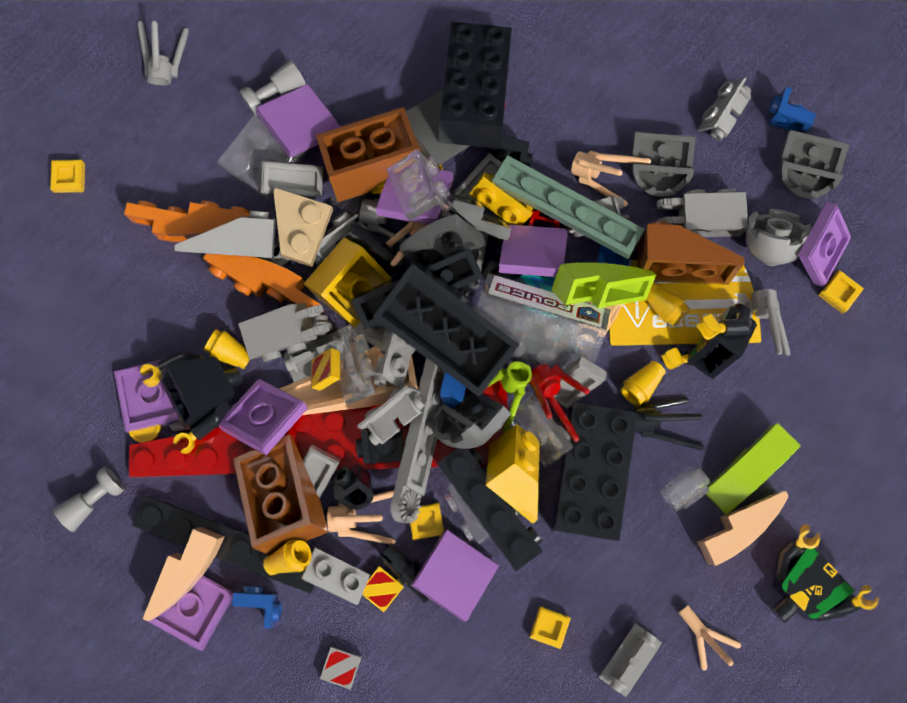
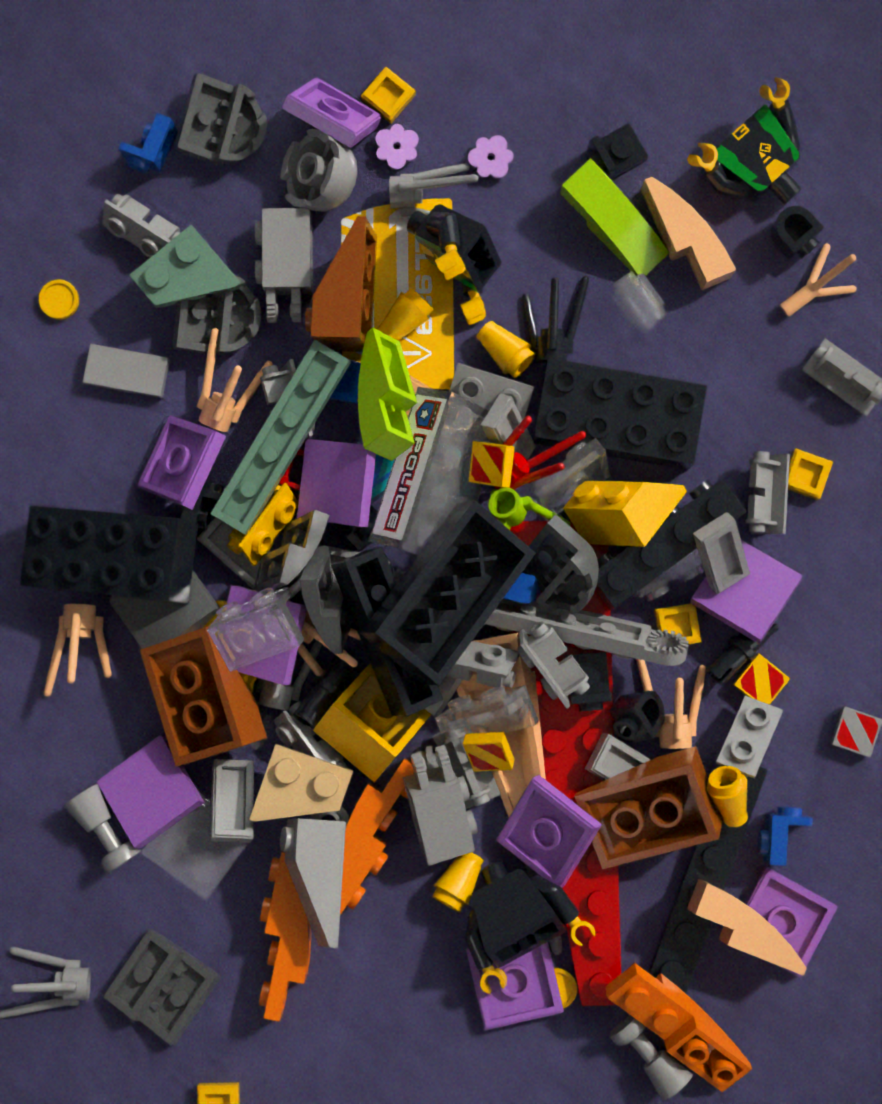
camera: 85 degrees left, 5 degrees up
(109, 525) = (681, 1023): none -> orange slope
(155, 134) = (162, 986): none -> dark grey slope
(424, 68) = (77, 624): none -> light nougat plant
(482, 551) = (721, 553): none -> light grey tile
(521, 594) = (769, 501): none -> light grey hinge
(547, 137) = (181, 461): none -> medium lavender tile
(550, 365) = (491, 464): none -> yellow tile
(612, 359) = (485, 387): none -> light grey hinge
(615, 100) = (126, 371): none -> light grey tile
(668, 52) = (59, 299): none -> yellow piece
(693, 134) = (183, 271): none -> sand green wing
(749, 618) = (796, 232): none -> black plate
(804, 374) = (495, 147): none -> lavender plant
(805, 292) = (386, 141): none -> lavender plant
(806, 471) = (617, 151): none -> black bracket

